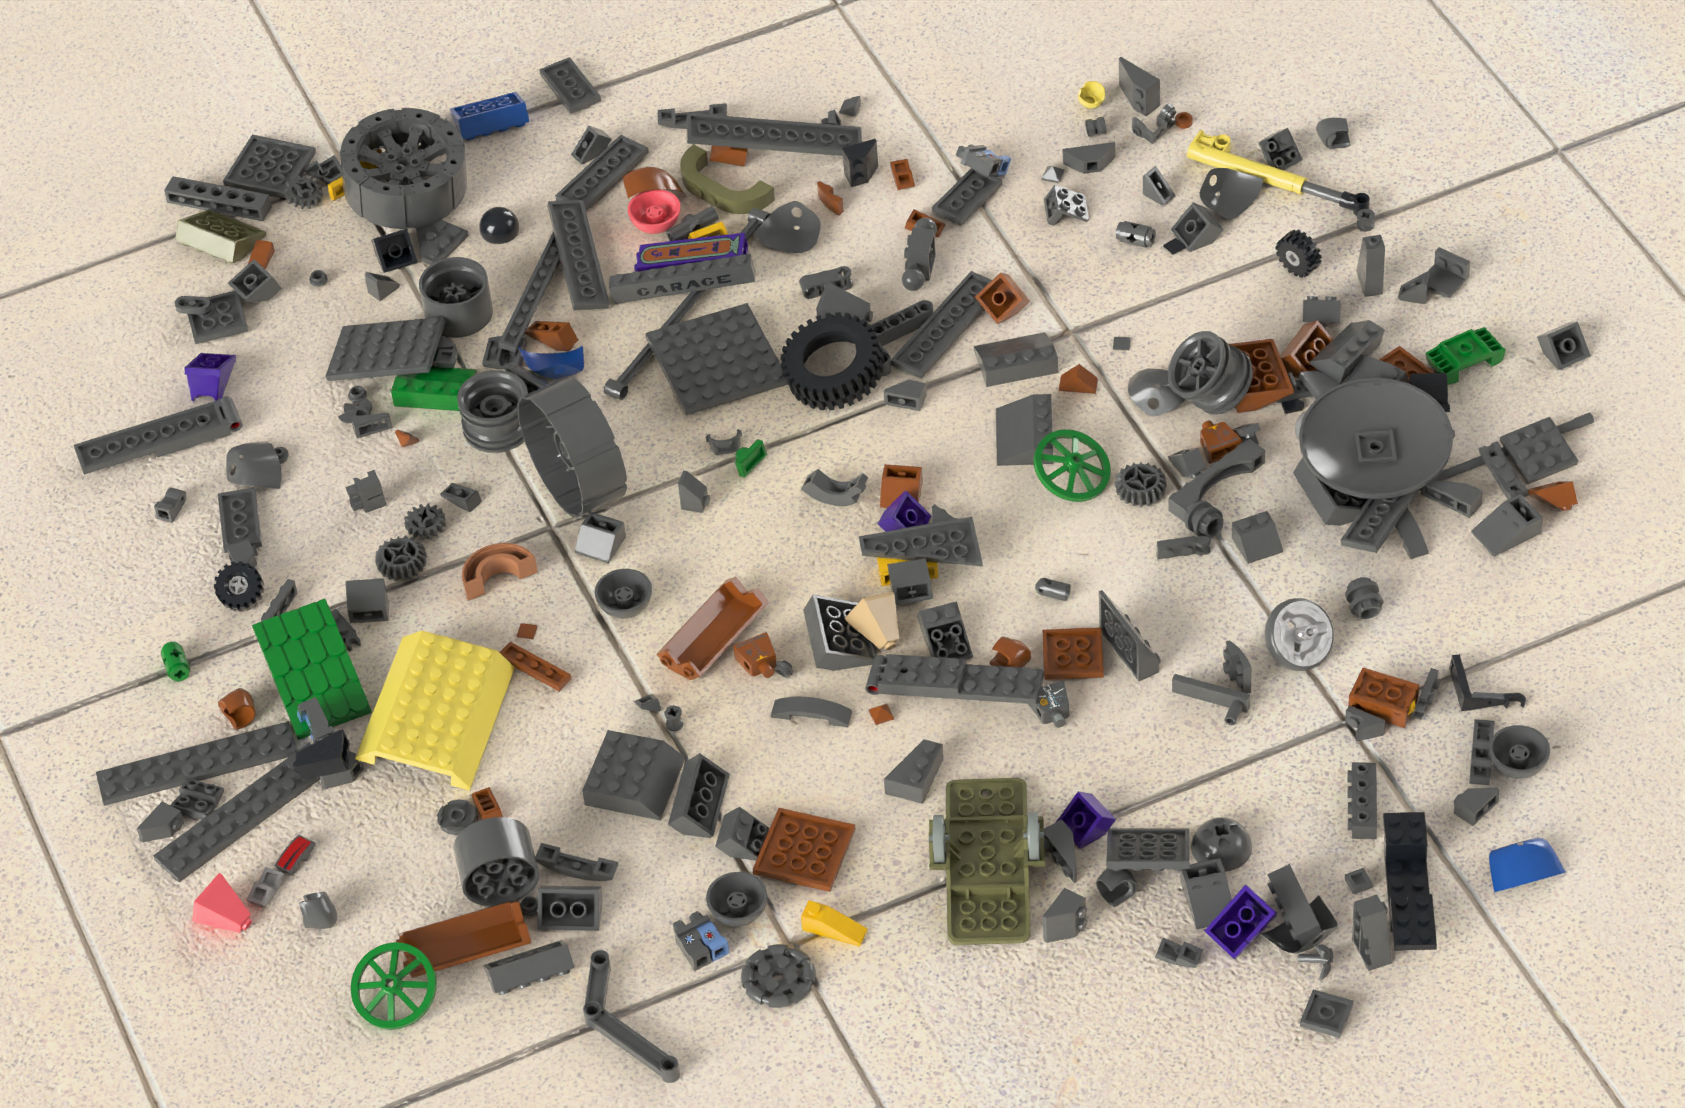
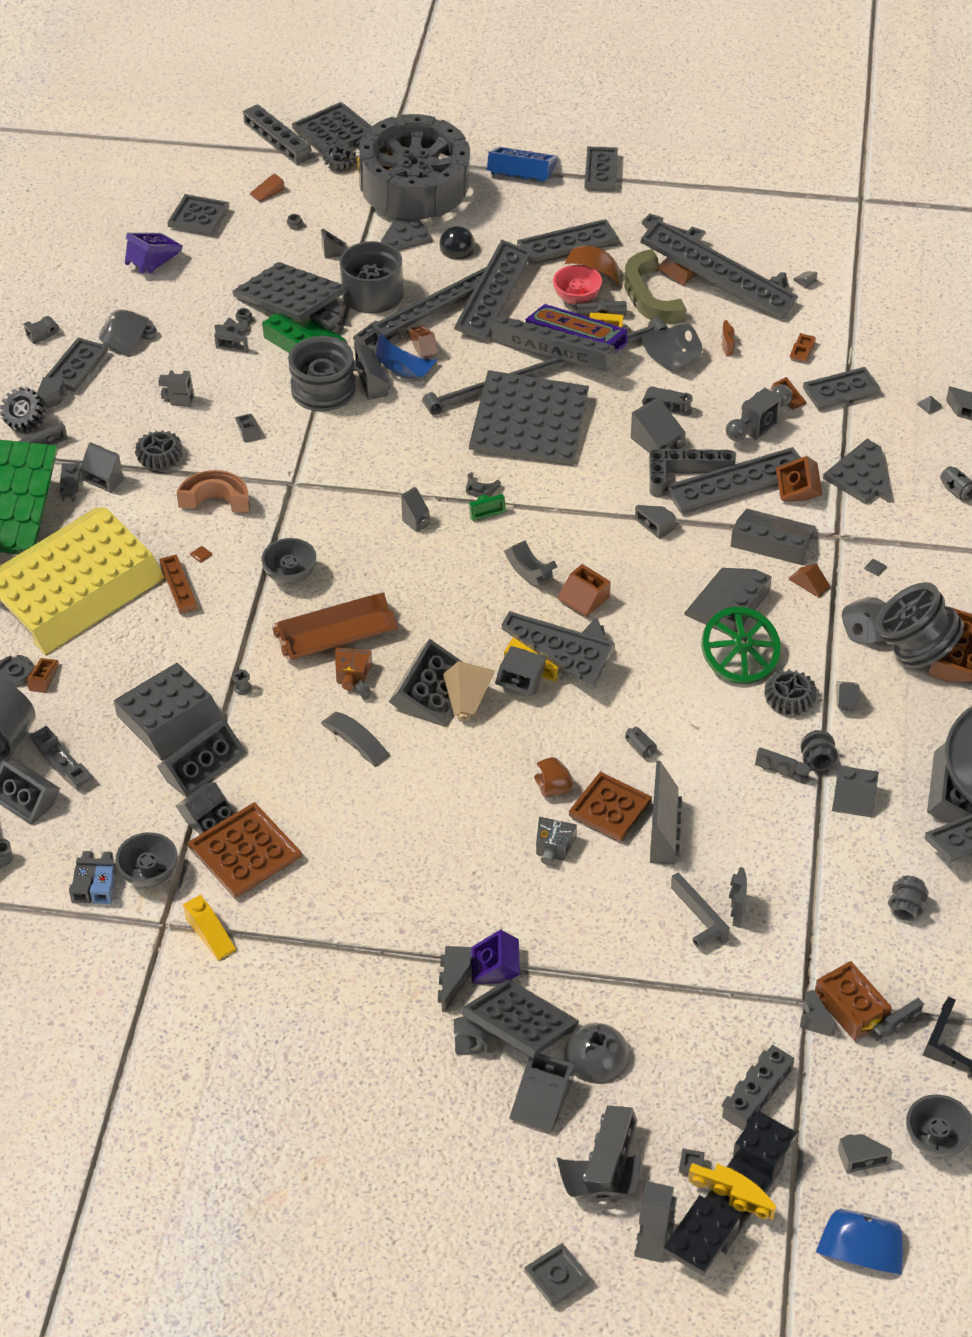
camera: 30 degrees right, 0 degrees up
(160, 435) = (79, 277): dark grey hinge -> none
(192, 305) = (186, 196): dark grey plate -> none
(218, 235) = (253, 158): olive slope -> none
(255, 283) = (244, 203): dark grey slope -> none
(394, 250) = (364, 225): black slope -> none
(406, 438) = (248, 363): dark orange slope -> none
(425, 521) = (202, 431): dark grey gear -> none
(572, 446) = (333, 421): dark grey wheel -> none
(591, 145) = (577, 215): dark grey slope -> none
(600, 537) = (315, 509): slope -> none
(648, 702) = (236, 660): dark grey slope -> none
(778, 966) = (125, 936): dark grey plate -> none
(842, 386) = (616, 484): black tyre -> none
(860, 162) = (773, 321): black slope -> none
(881, 714) = (409, 770): dark orange slope -> none
(904, 513) = (568, 613): dark purple slope -> none
(915, 773) = (390, 835): dark grey wedge -> none
(945, 632) = (516, 730): dark grey slope -> none
(952, 679) = (488, 774): dark grey hinge -> none
(983, 160) = (875, 365): hips -> none
(987, 859) = (377, 943): olive piece -> none
(1046, 265) = (861, 473): none -> dark grey wing
(1065, 917) = (396, 1037): dark grey slope -> none
(1067, 202) = (919, 431): dark grey bracket -> none
(1182, 955) = (473, 1132): dark grey slope -> none
(1217, 440) = (889, 690): dark orange torso -> none
(1241, 922) = (546, 1136): dark purple piece -> none
(1243, 459) = (900, 717): dark grey arch -> none
(1247, 432) = (918, 699): dark grey slope -> none
(1310, 630) = (795, 893): flat silver wheel -> none
(1325, 957) = (597, 1215): dark grey plant -> none
(1415, 876) = (742, 1191): none -> yellow slope
(1480, 758) = (894, 1121): dark grey slope -> none

